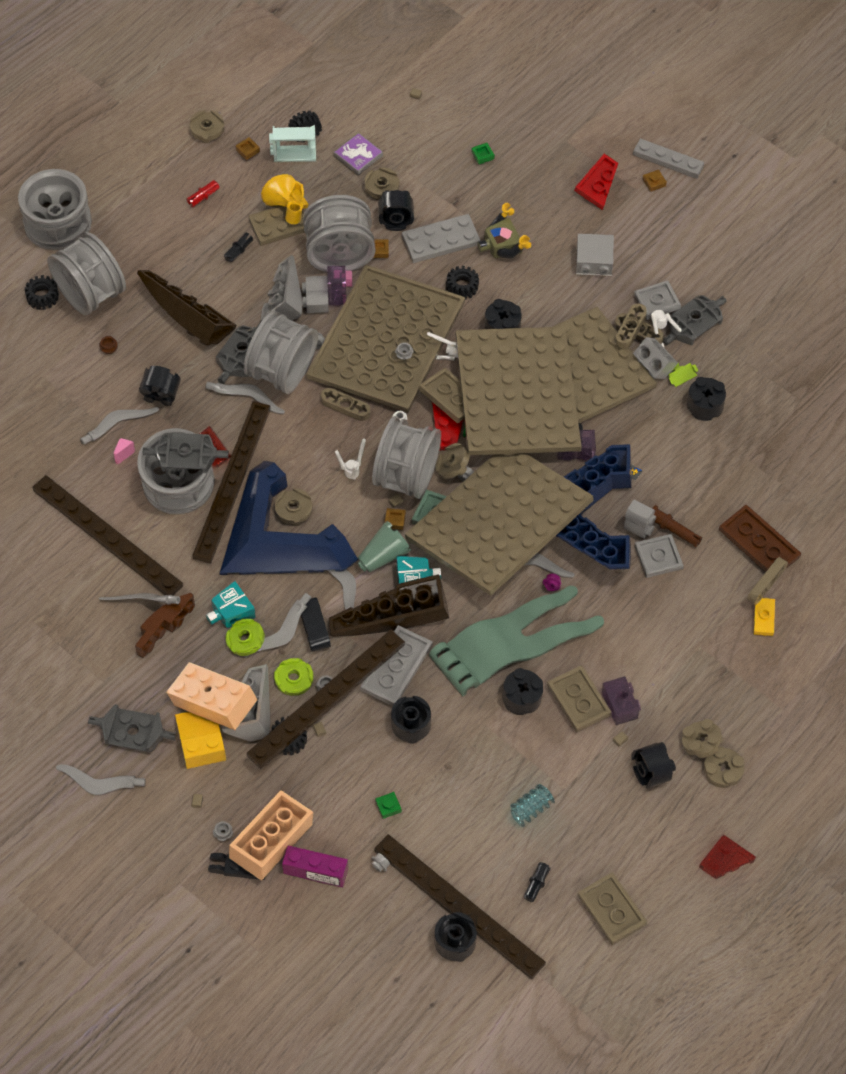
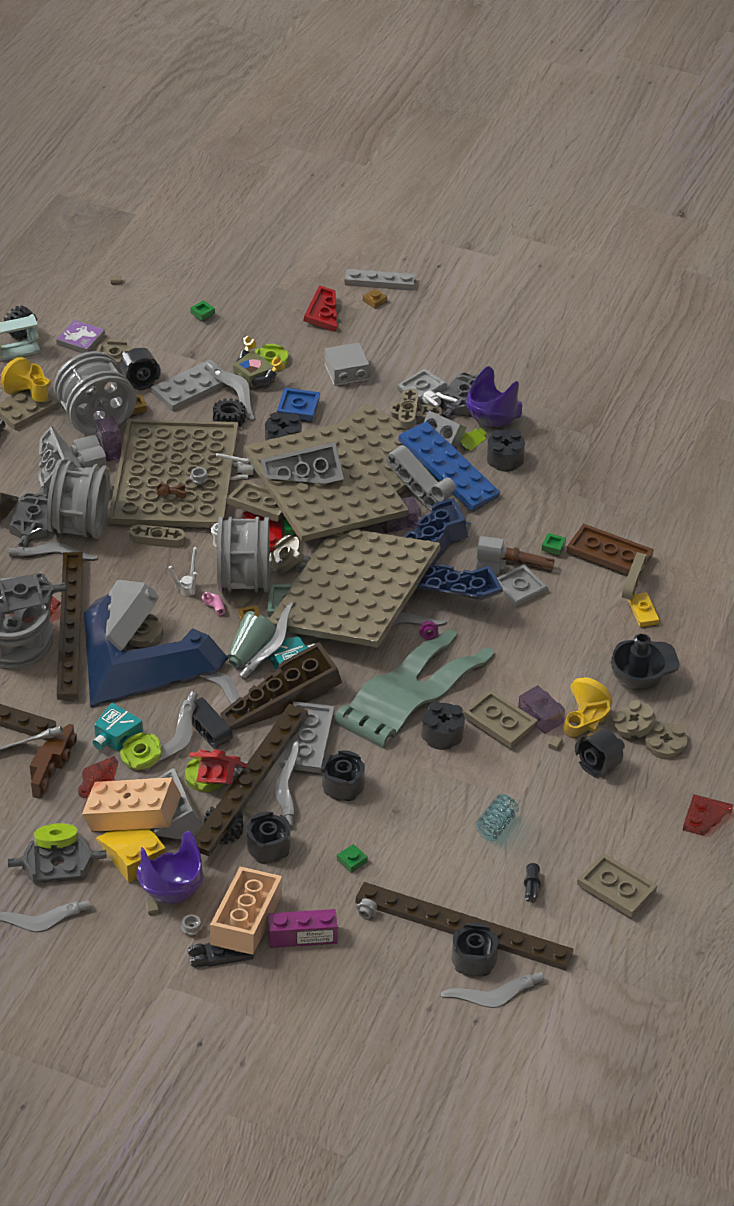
camera: 20 degrees left, 15 degrees down
(129, 704) = (56, 834): none -> lime tile
(197, 655) = (98, 772): none -> clear red plate
(219, 779) = (172, 875): none -> dark purple piece
(284, 484) = (128, 609): none -> light grey wedge
(299, 680) = (216, 766): none -> red bracket
(320, 774) = (268, 837): none -> black brick
(354, 713) = (281, 786): none -> light grey piece
(366, 359) = (164, 490): none -> reddish brown arm
(370, 492) = (214, 601): none -> bright pink arm
(398, 562) = (272, 646): none -> light grey piece
(463, 986) = (498, 996): none -> light grey piece
(481, 250) = (236, 382): none -> light grey piece
(508, 375) = (311, 465): none -> light grey wedge
(531, 289) = (299, 402): none -> blue plate
(533, 218) = (273, 350): none -> lime tile
(607, 412) = (419, 478): none -> light grey beam
(643, 402) = (446, 462): none -> blue plate
(668, 713) = (593, 706): none -> yellow piece
(709, 518) = (553, 544): none -> green plate
(711, 343) = (491, 406): none -> dark purple piece
(734, 680) = (643, 662): none -> black piece

